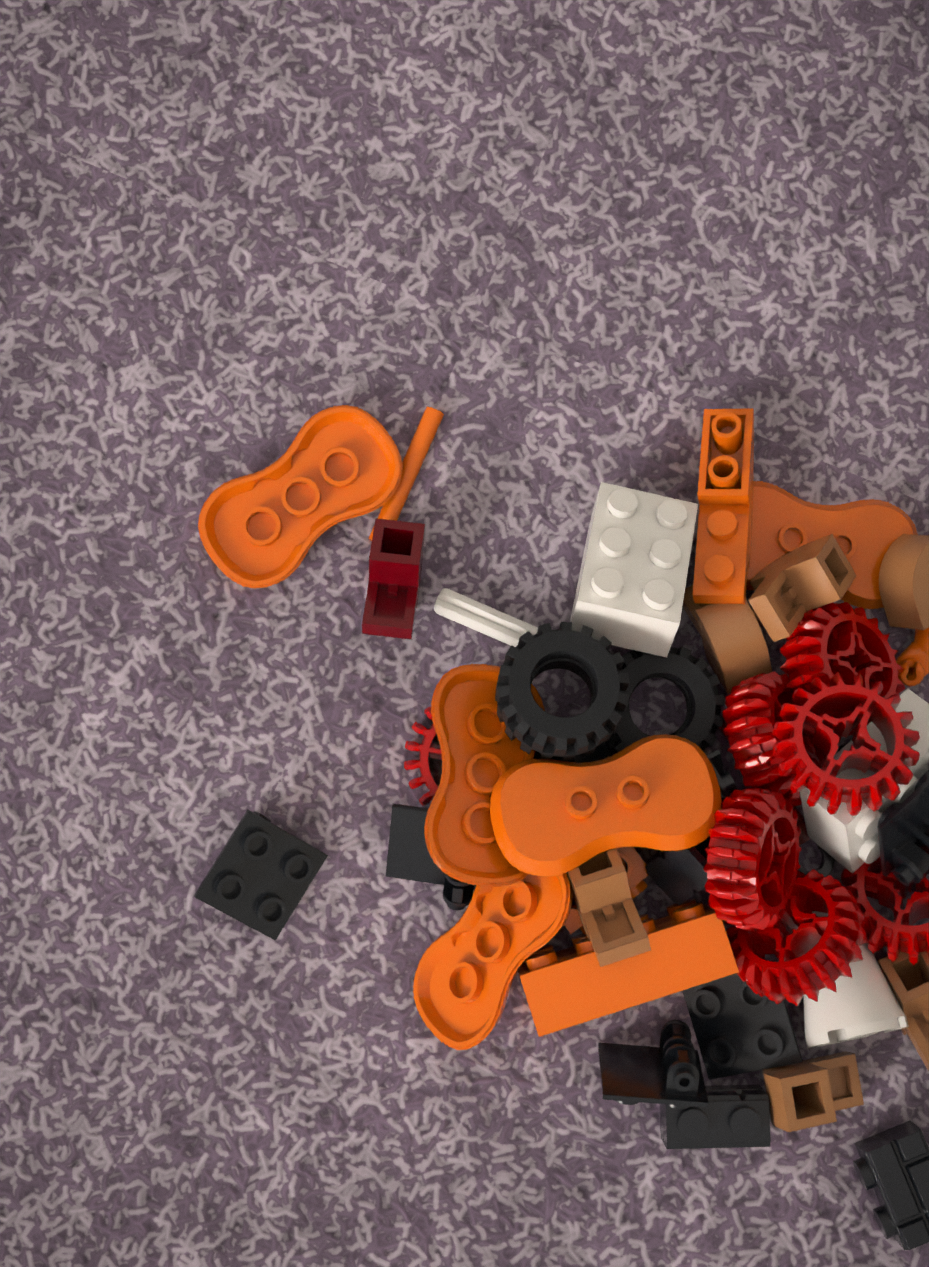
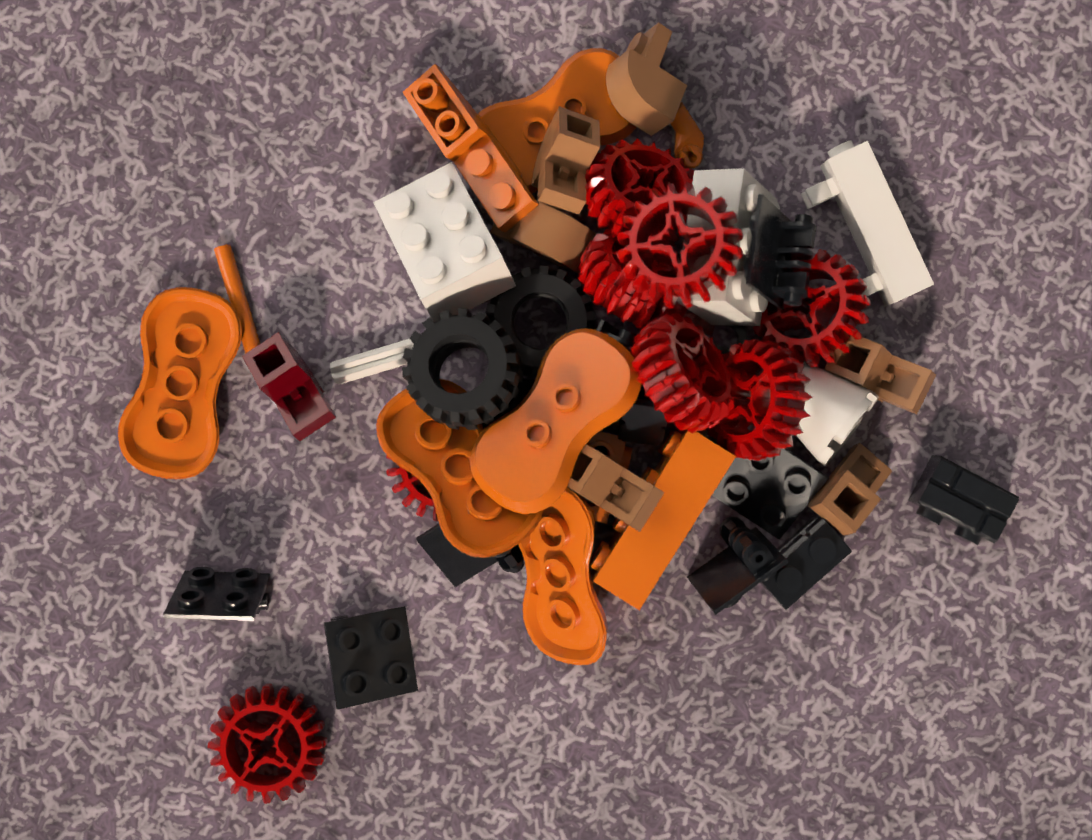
camera: 40 degrees left, 5 degrees up
(63, 884) = (279, 754): none -> red gear
(178, 708) = (219, 595): none -> black hinge

